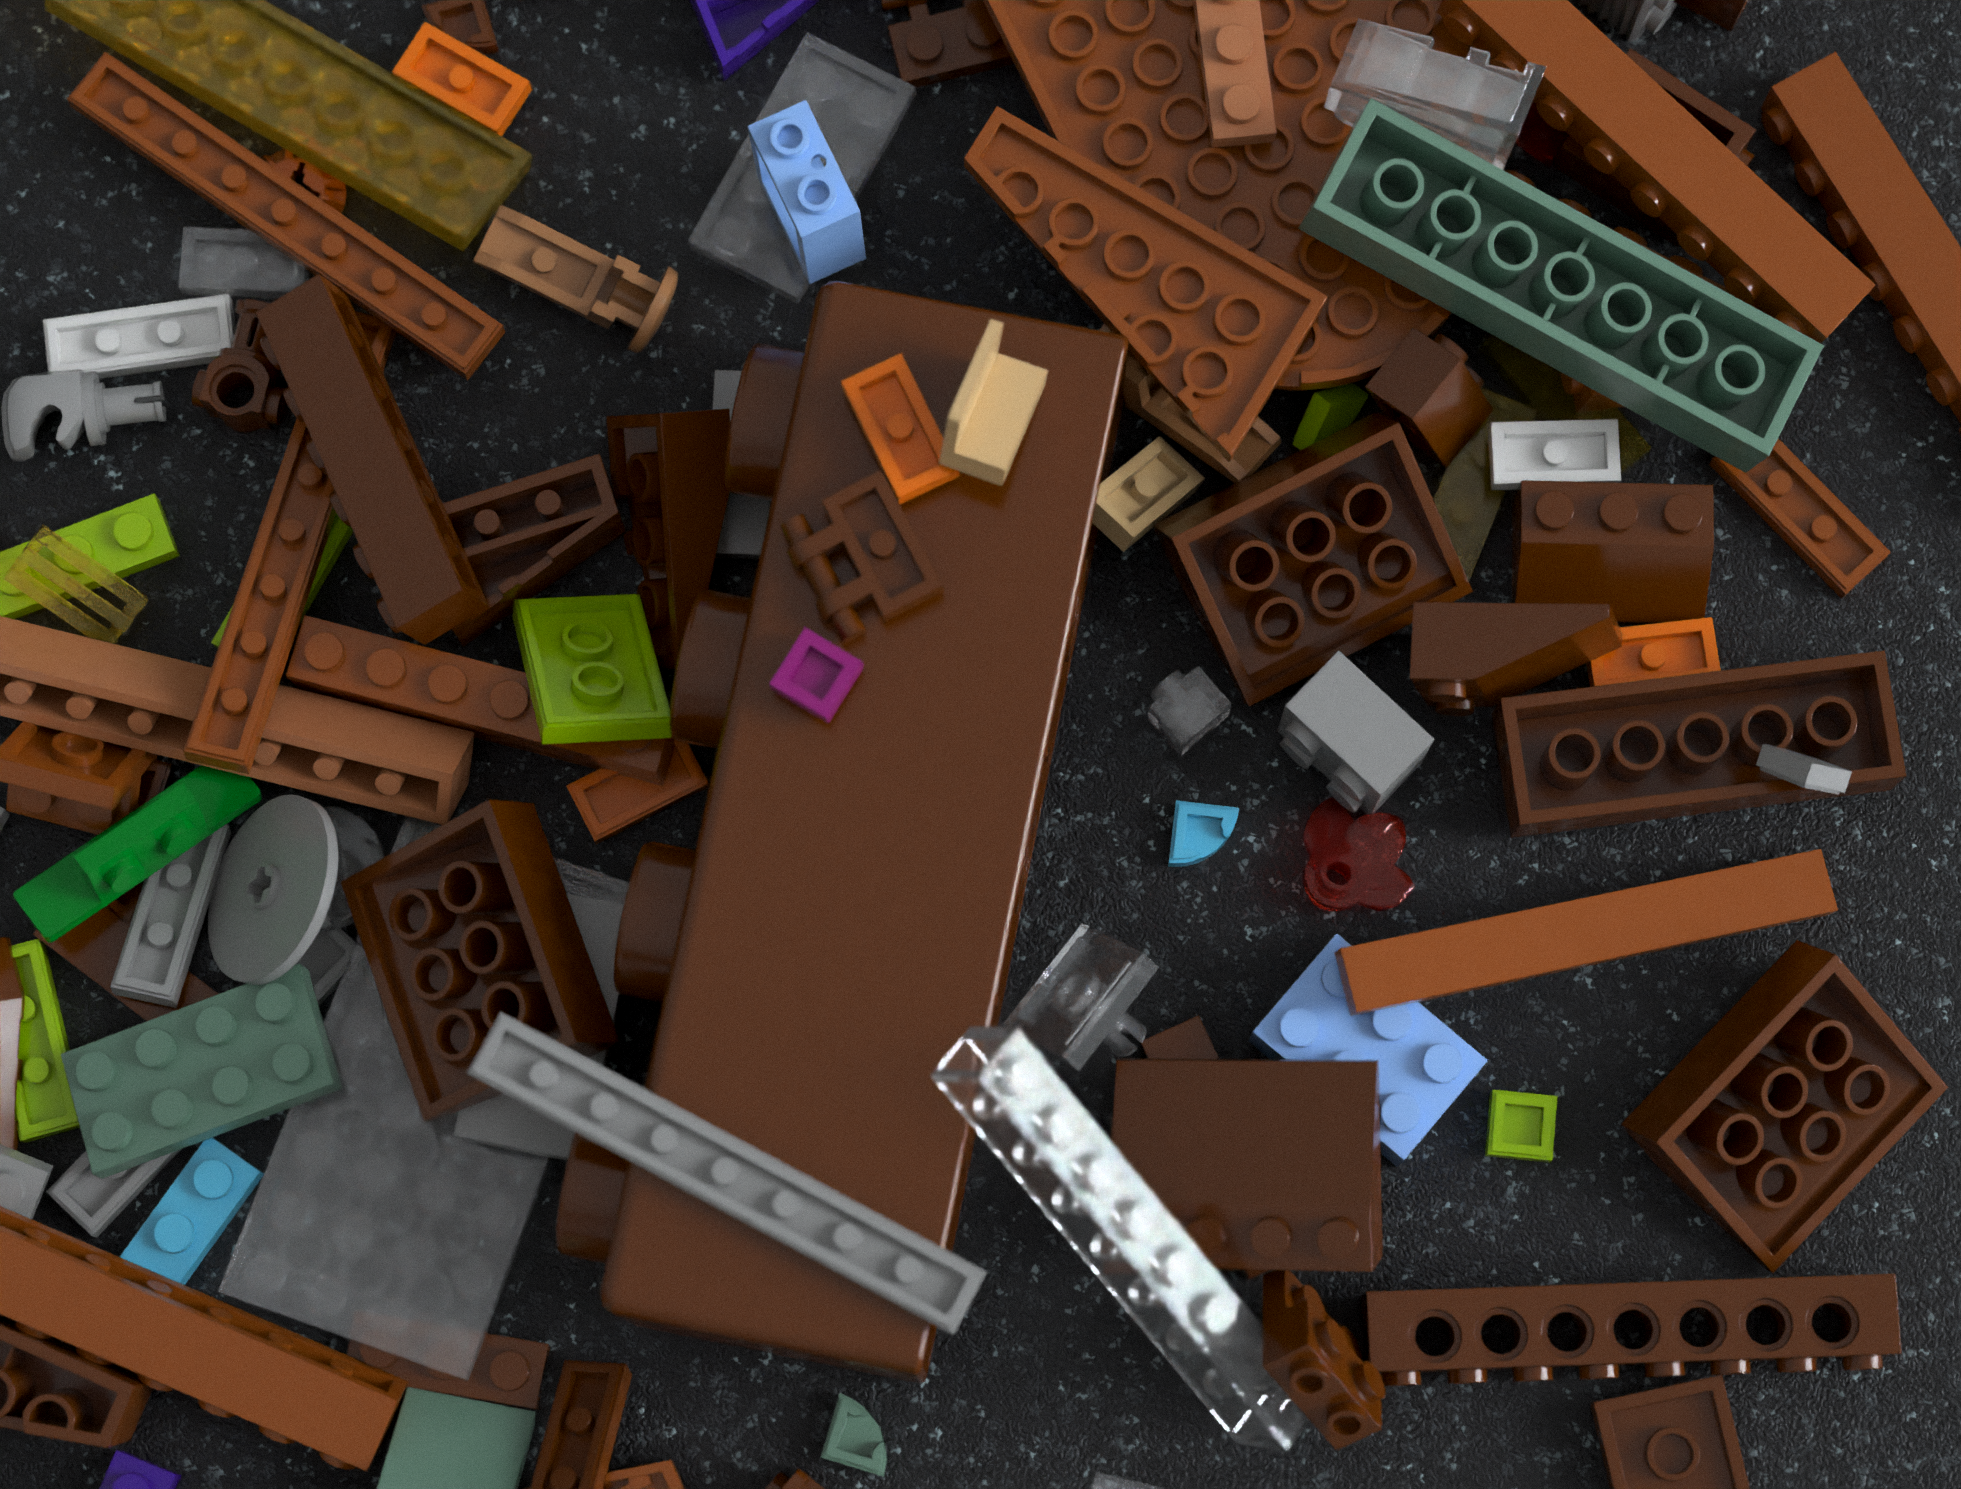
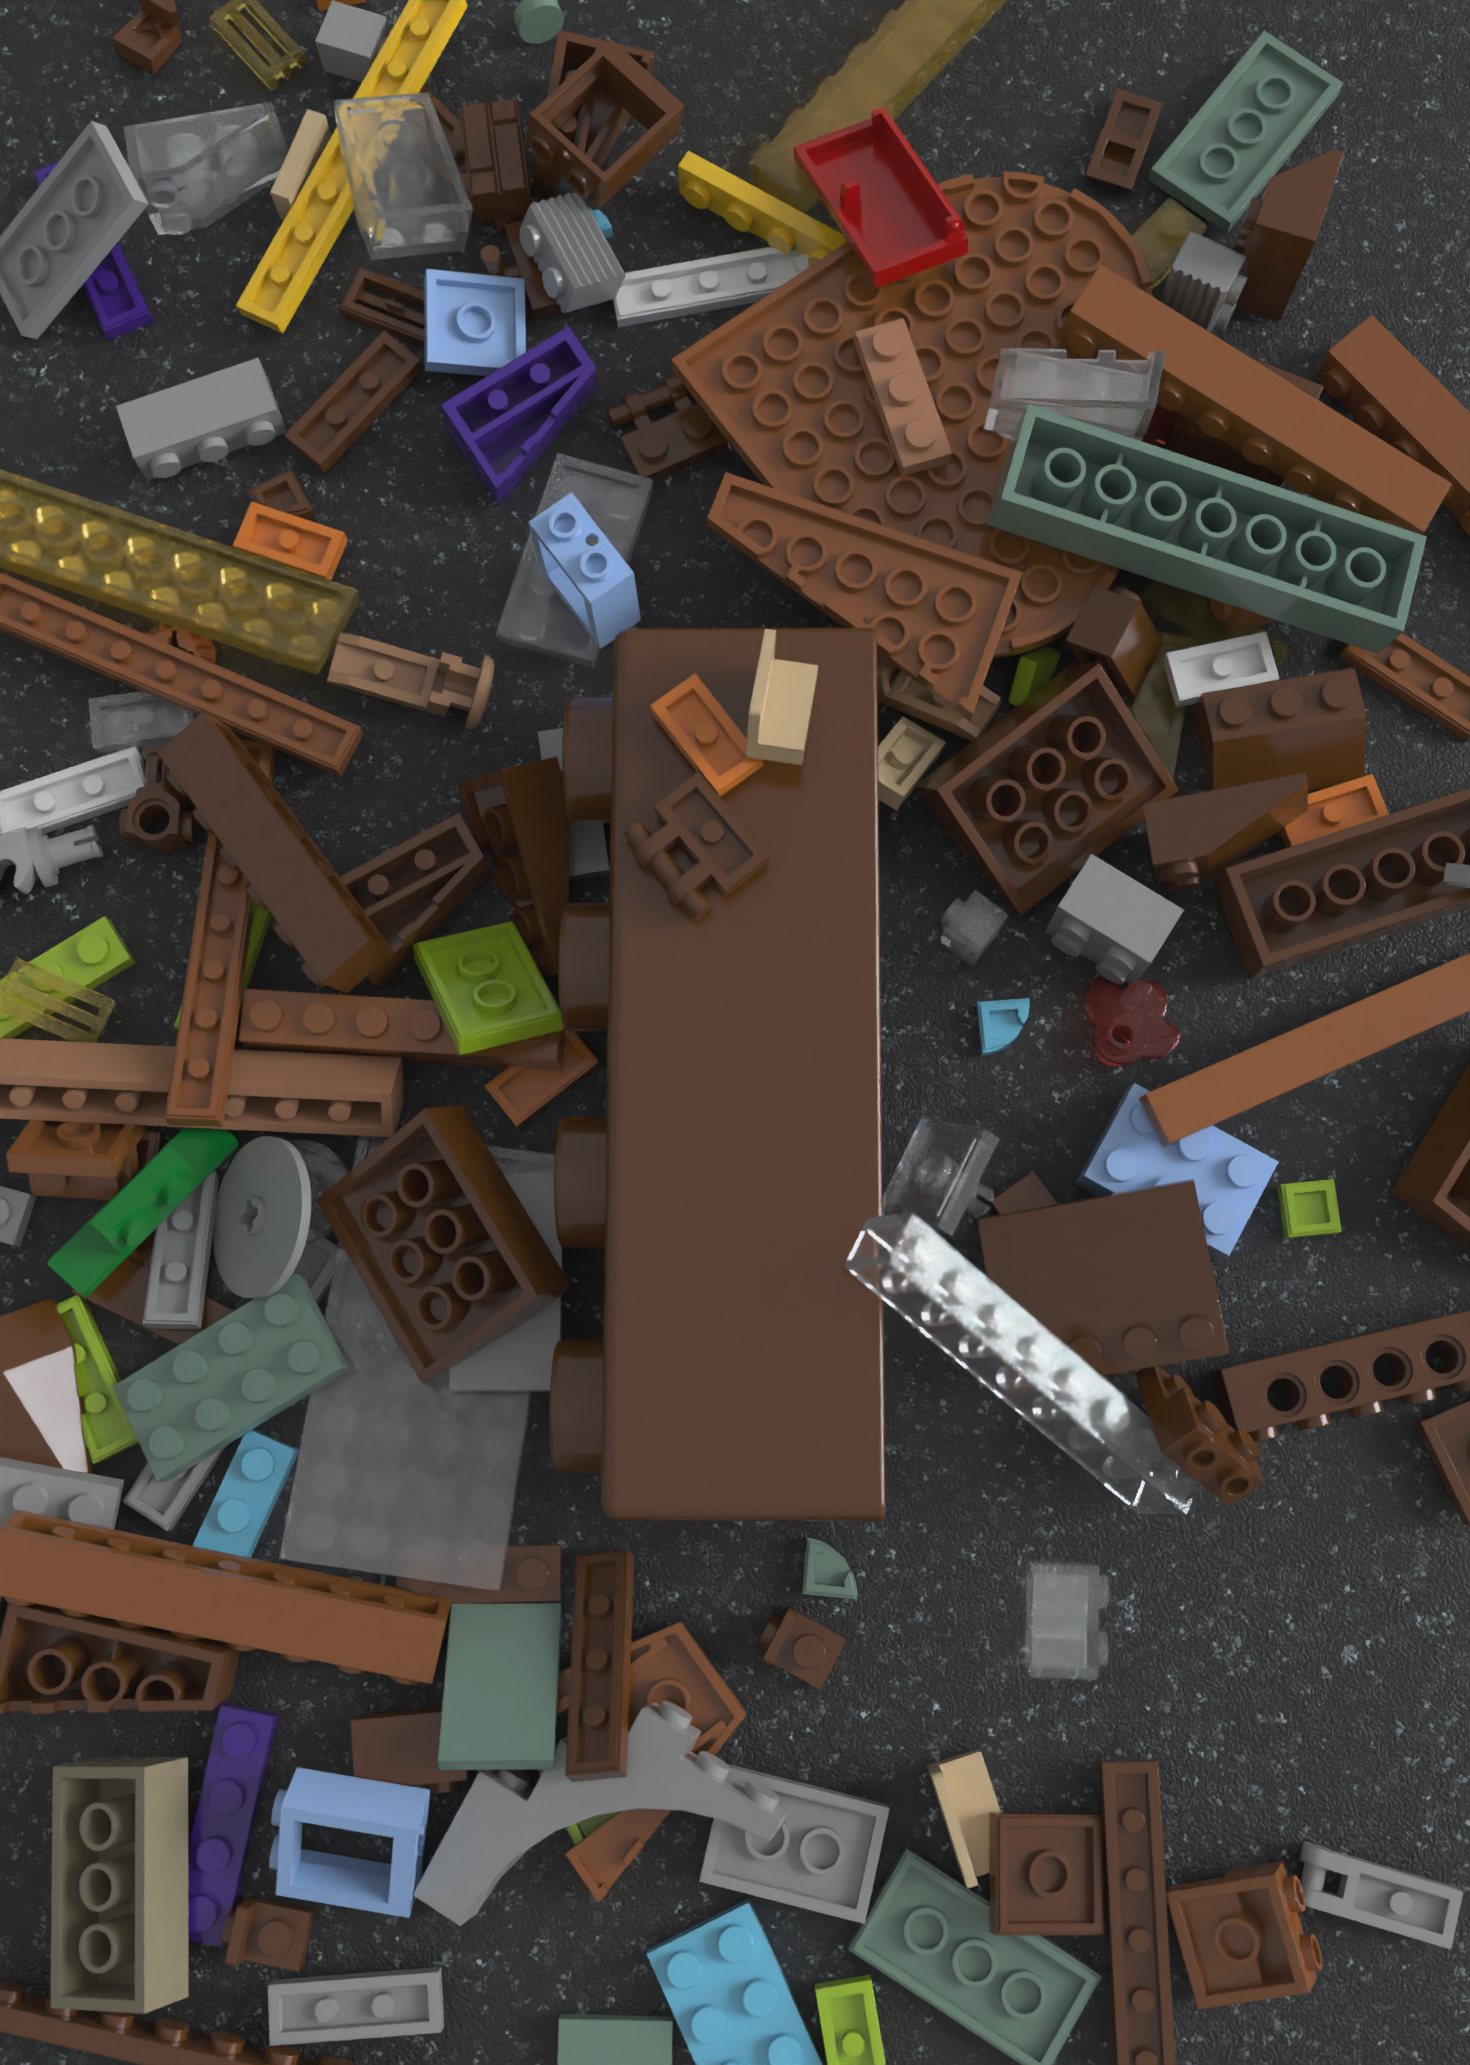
camera: 10 degrees left, 0 degrees up
(727, 1173) = (689, 1383): light grey tile -> none
(816, 675) = (679, 951): magenta plate -> none

